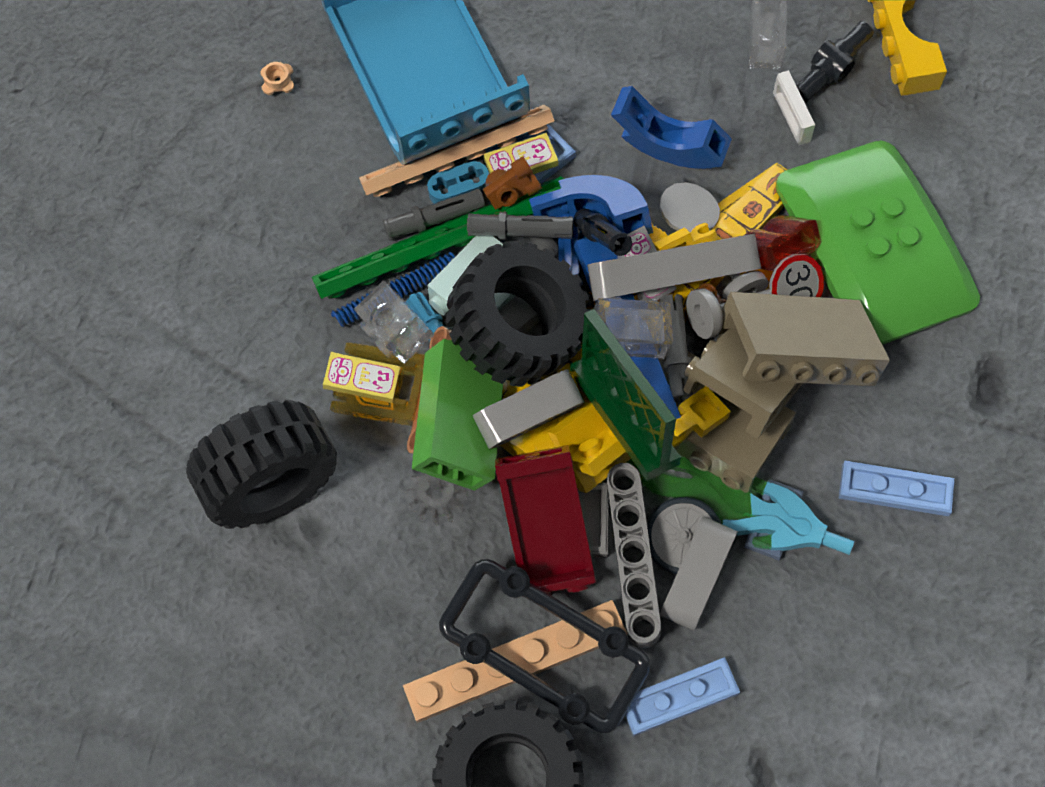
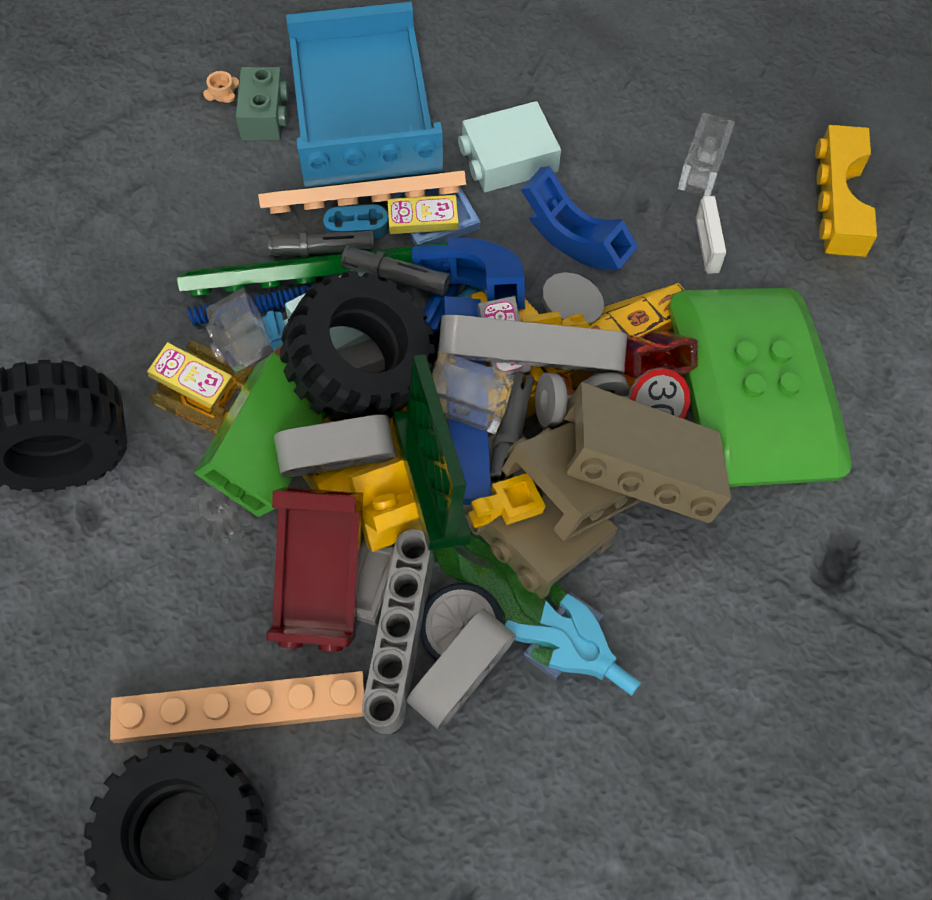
camera: 10 degrees right, 5 degrees down
(324, 87) = (260, 103): none -> sand green brick
(507, 186) = (410, 228): dark orange plate -> none
(579, 67) = (509, 146): none -> light aqua brick
(611, 235) = (470, 293): black pin -> none
(611, 641) = (342, 714): black bar -> none
(681, 696) = (398, 797): light blue tile -> none
(834, 60) = (765, 202): black pin -> none
(896, 488) = (705, 640): light blue tile -> none

